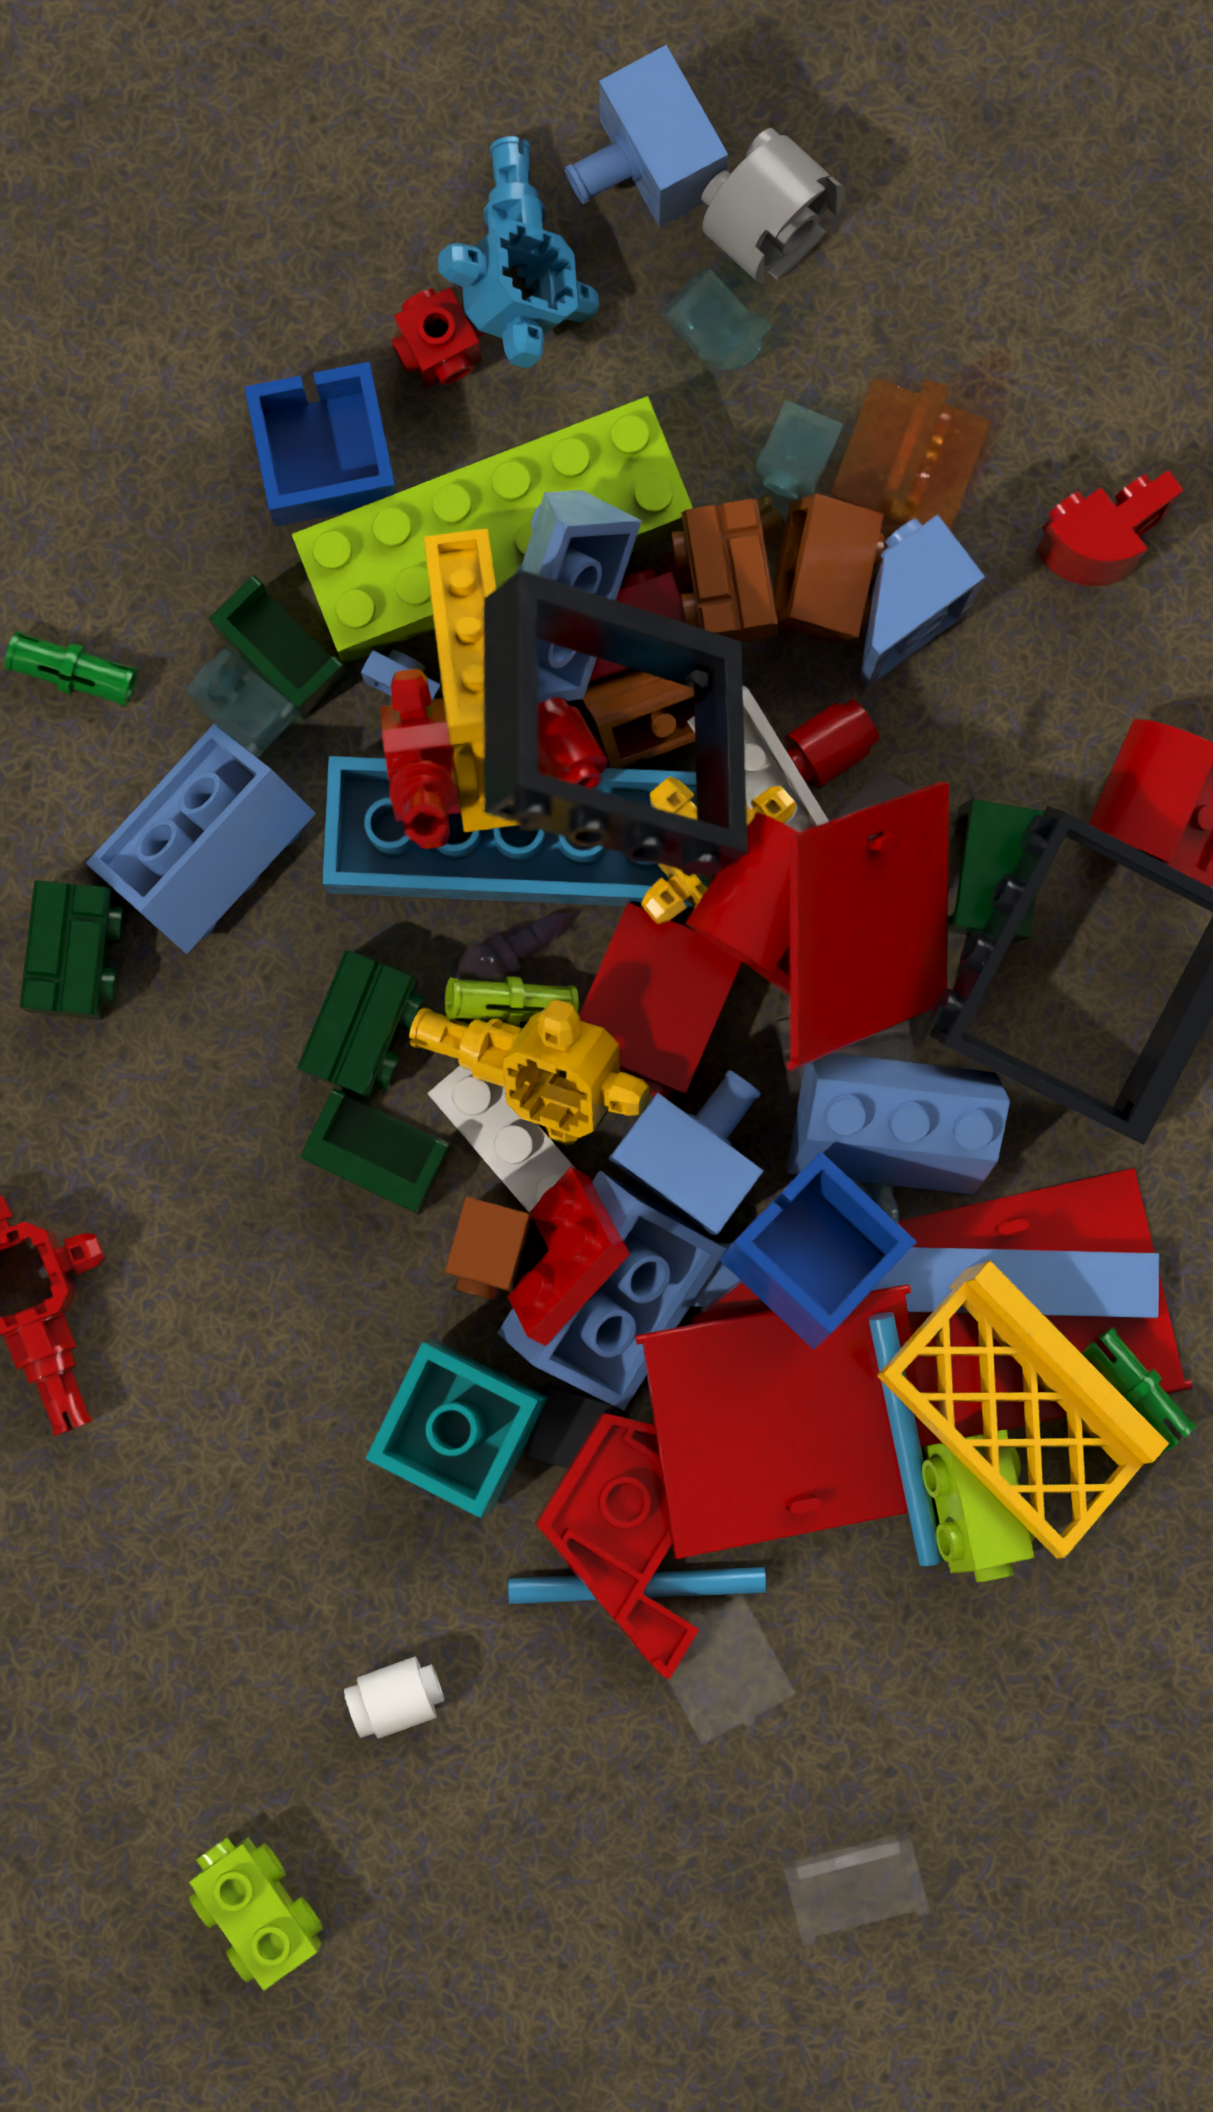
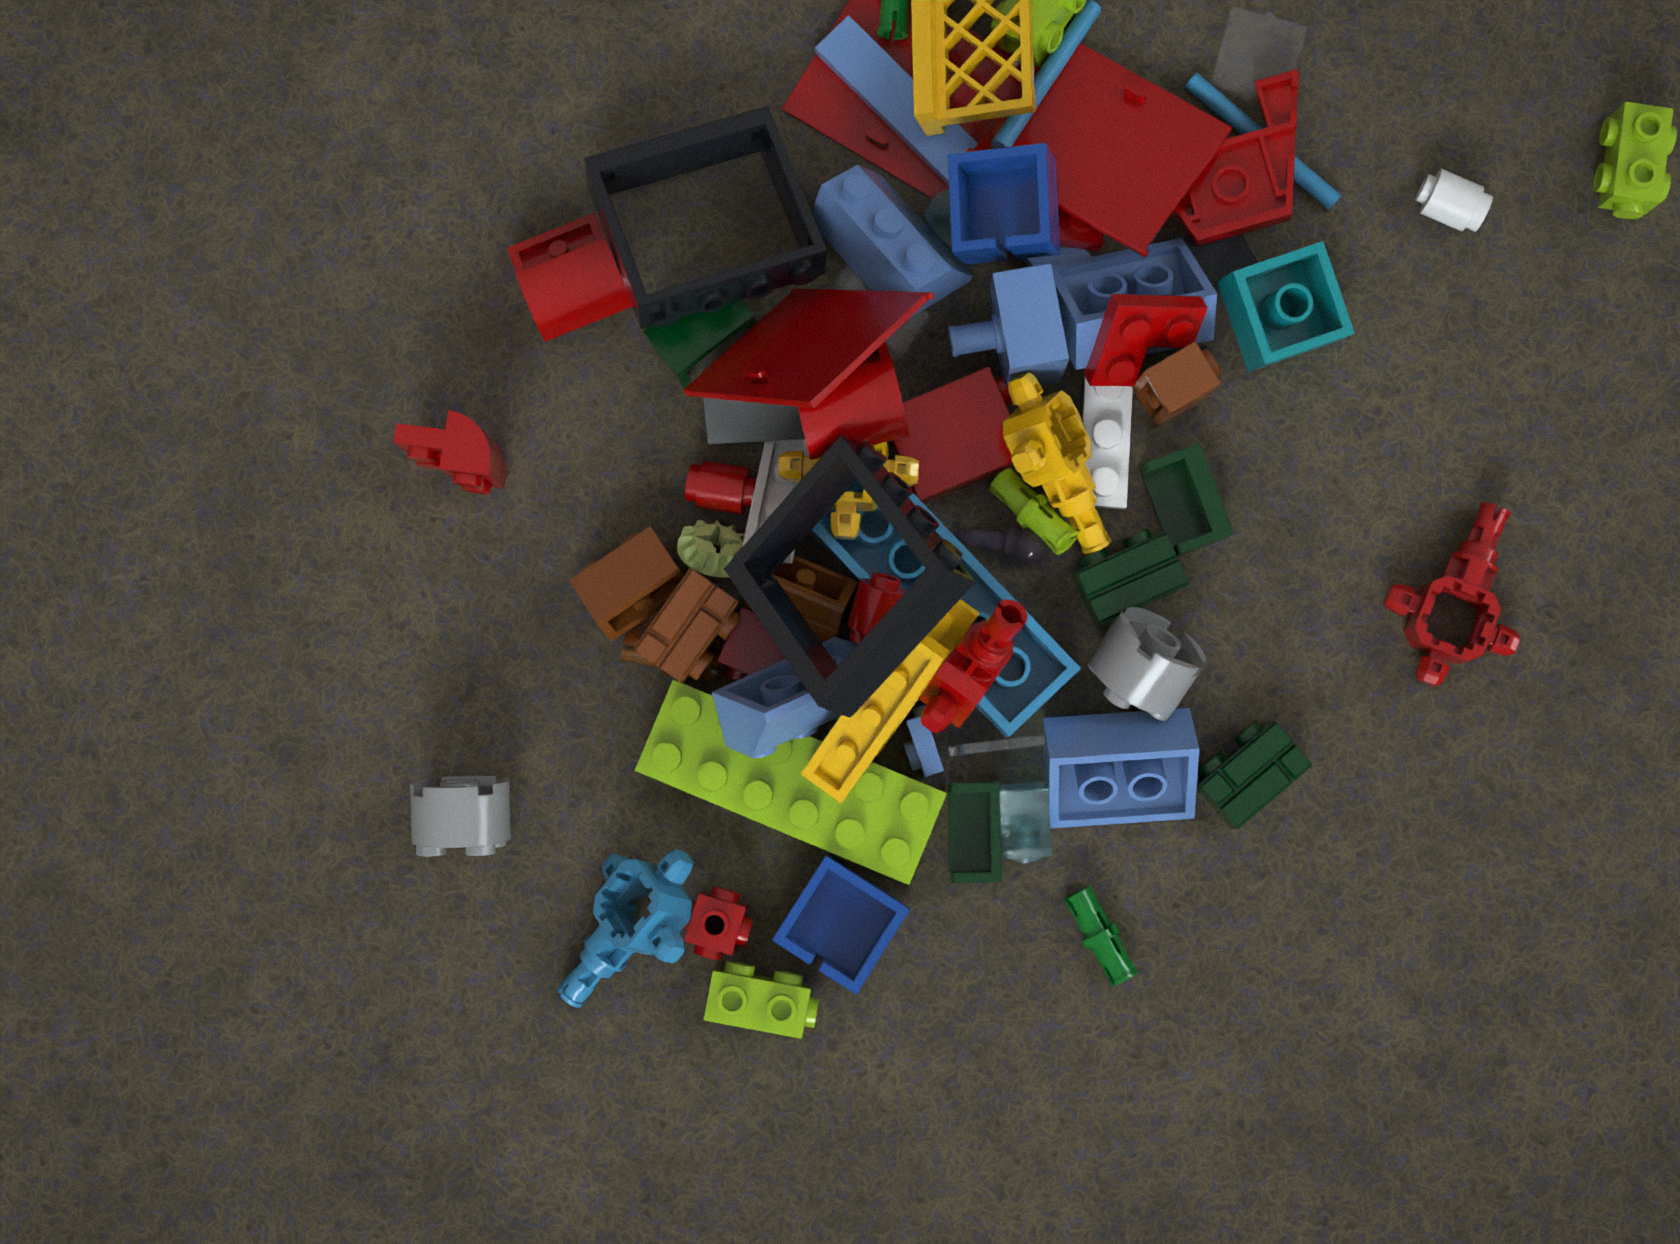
camera: 130 degrees left, 0 degrees up
(266, 950) = (1146, 663): none -> light grey brick
(328, 305) = (760, 1002): none -> lime brick
(333, 740) = (997, 745): none -> clear piece
(655, 137) = (485, 913): medium blue brick -> none
(715, 322) = (553, 780): clear light blue bracket -> none
(791, 657) = (697, 548): none -> yellowish green gear
(797, 451) = (580, 665): clear light blue bracket -> none
(910, 454) = (520, 603): clear orange bracket -> none
(917, 595) = (600, 511): medium blue slope -> none

